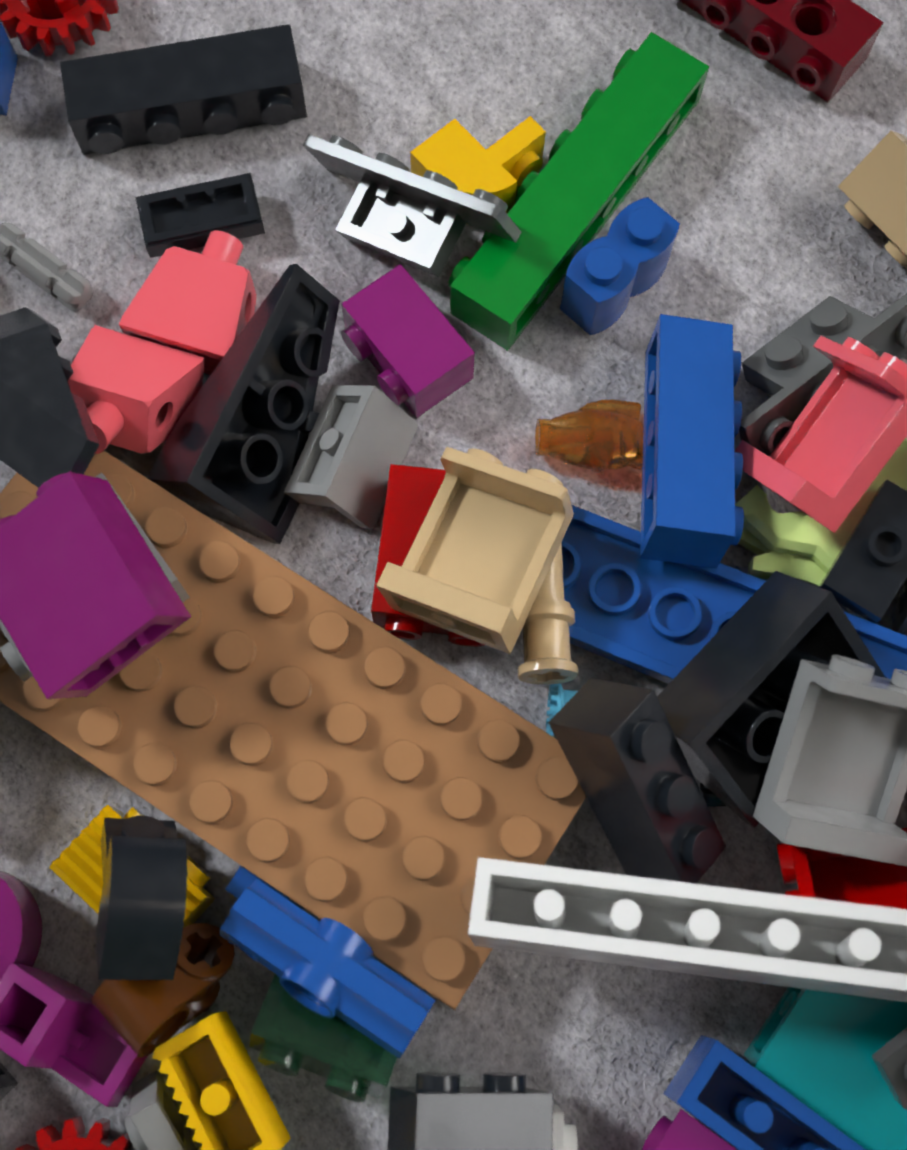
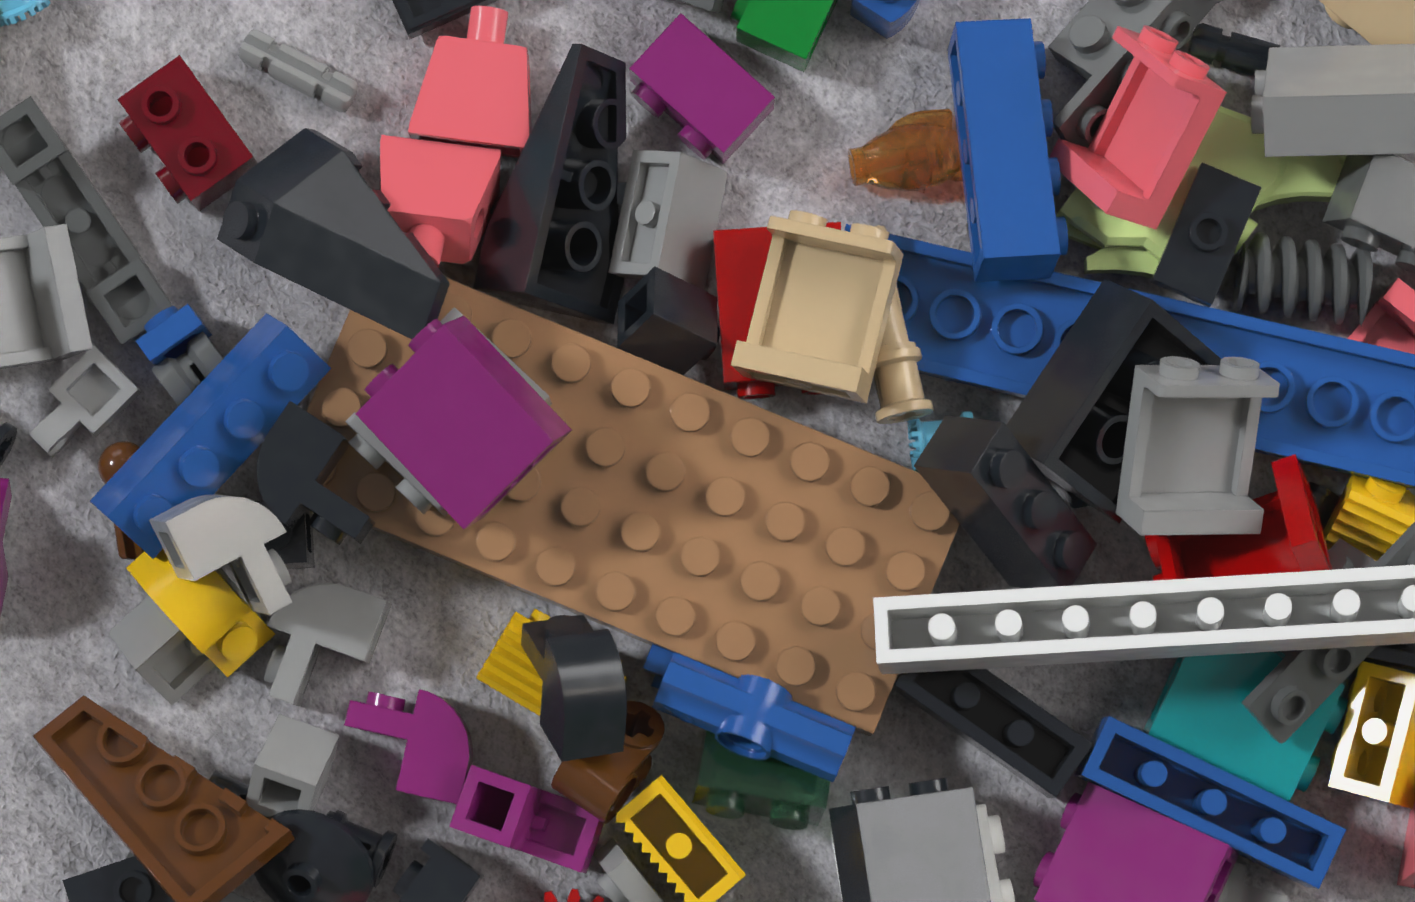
camera: 10 degrees left, 10 degrees up
(329, 543) = (668, 322): none -> black brick
(597, 1027) = (999, 724): none -> black brick

